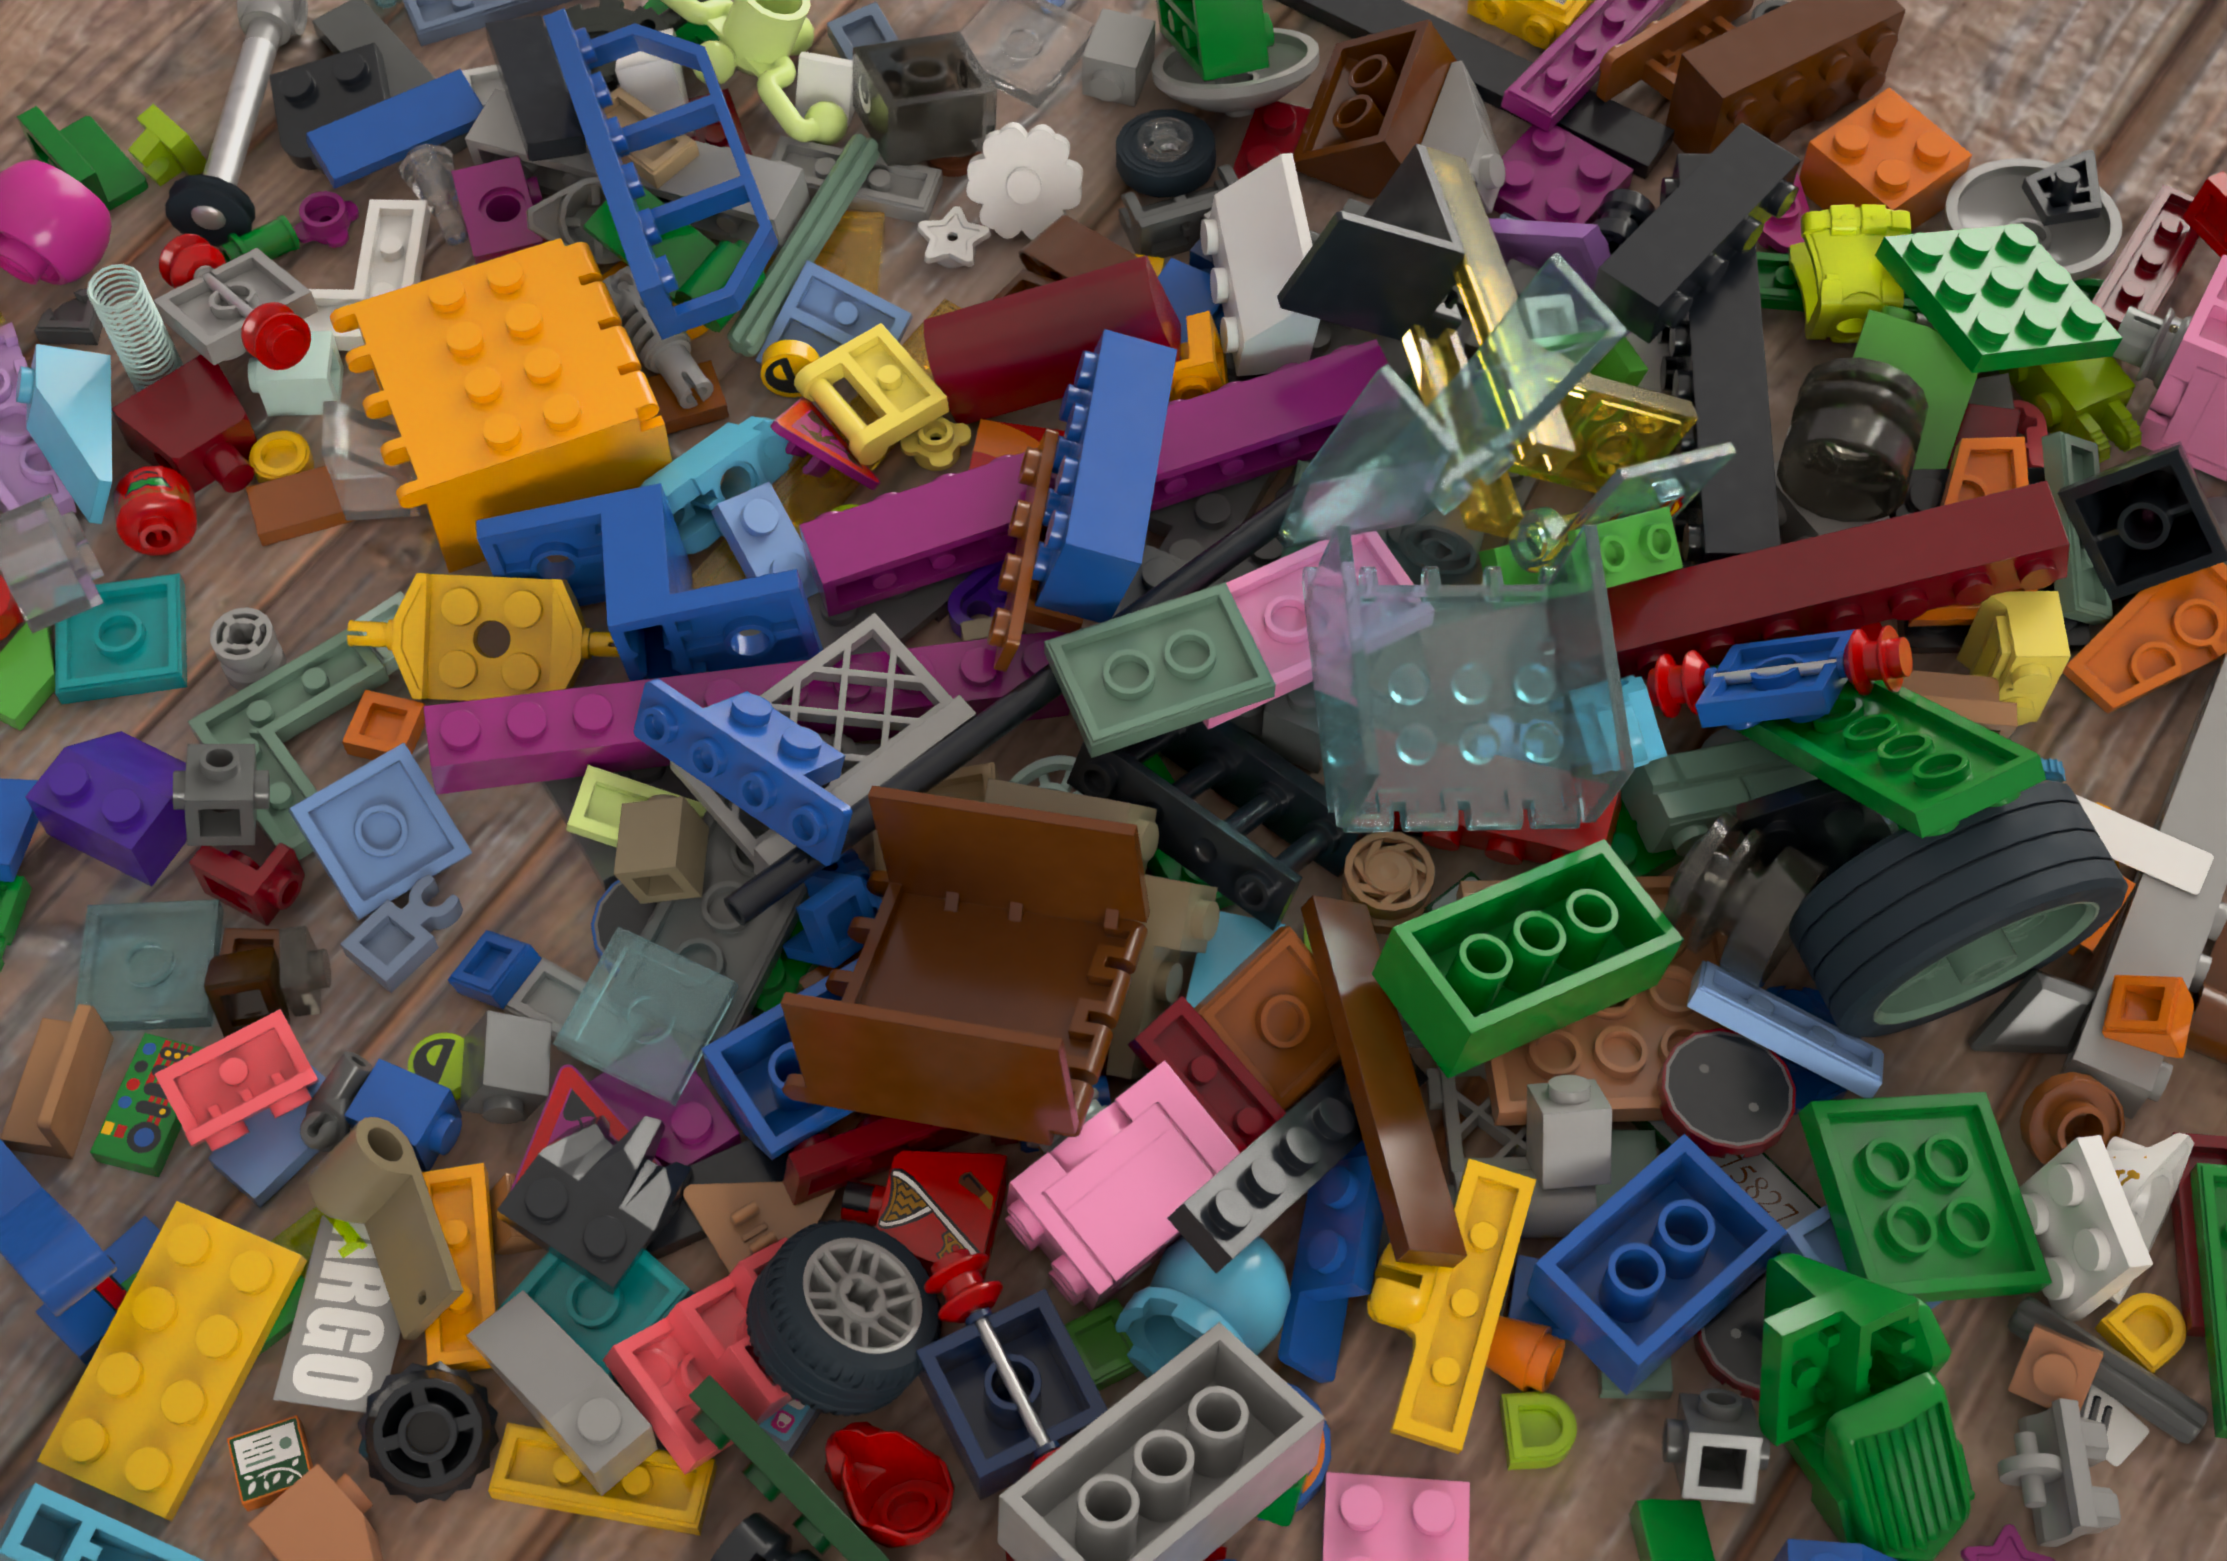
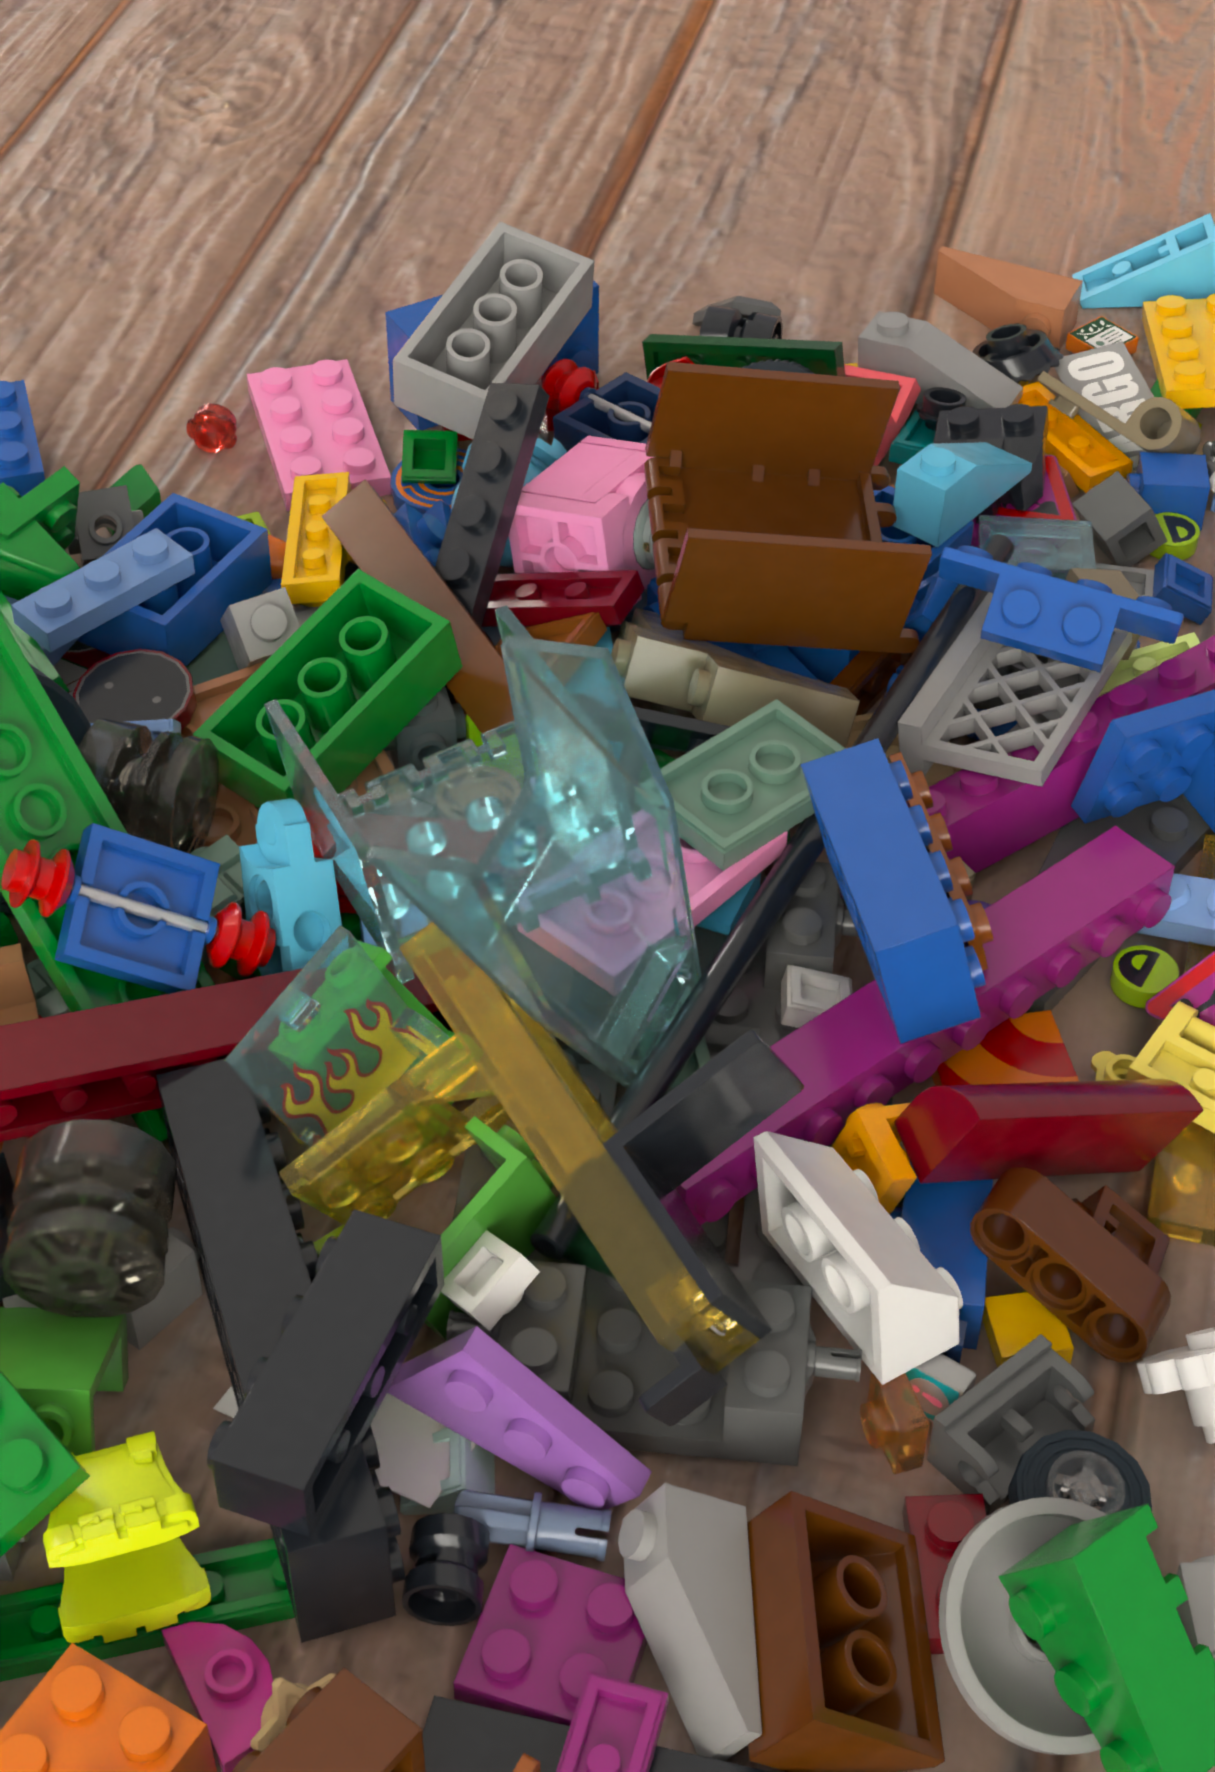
camera: 160 degrees right, 15 degrees down
(586, 1304) = (938, 400): none -> black plate
(693, 1076) = (951, 486): none -> medium azure slope
(1177, 530) = (810, 993): none -> white tile
(1748, 1192) = (102, 589): none -> medium blue plate

